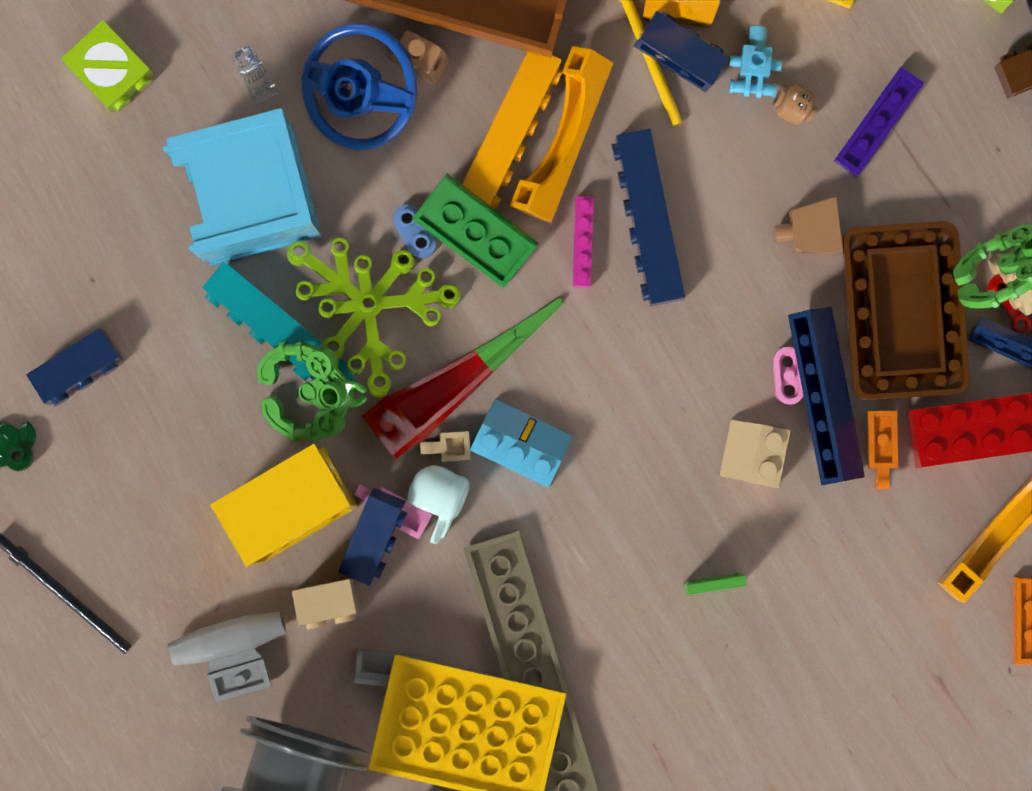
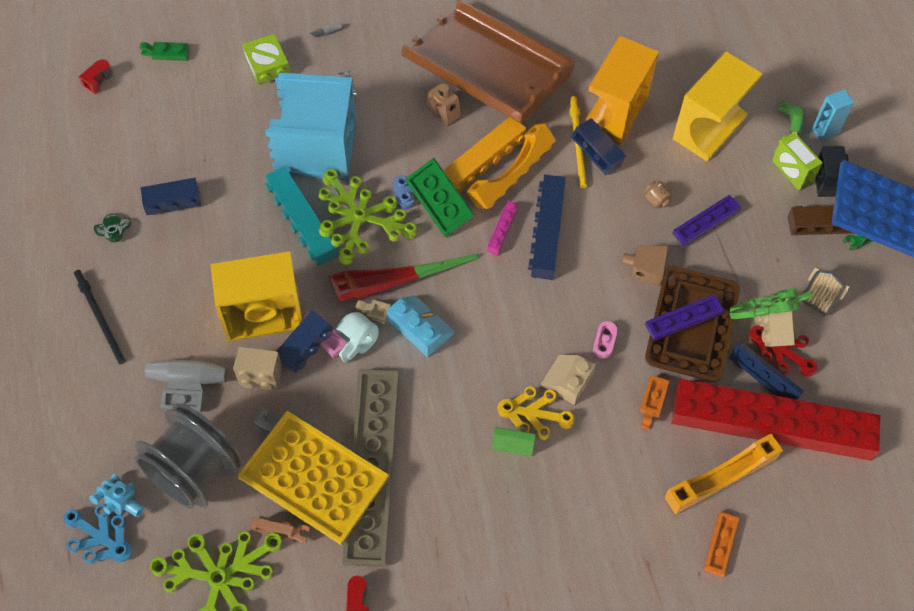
camera: 15 degrees right, 25 degrees down
(320, 391) = (313, 249): bright green piece -> none
(368, 92) = (400, 101): blue piece -> none
(722, 524) = (532, 413): none -> yellow plant
(755, 65) = (640, 168): medium azure piece -> none
(826, 395) = (625, 357): dark blue brick -> none
(893, 313) = (684, 317): none -> dark purple plate

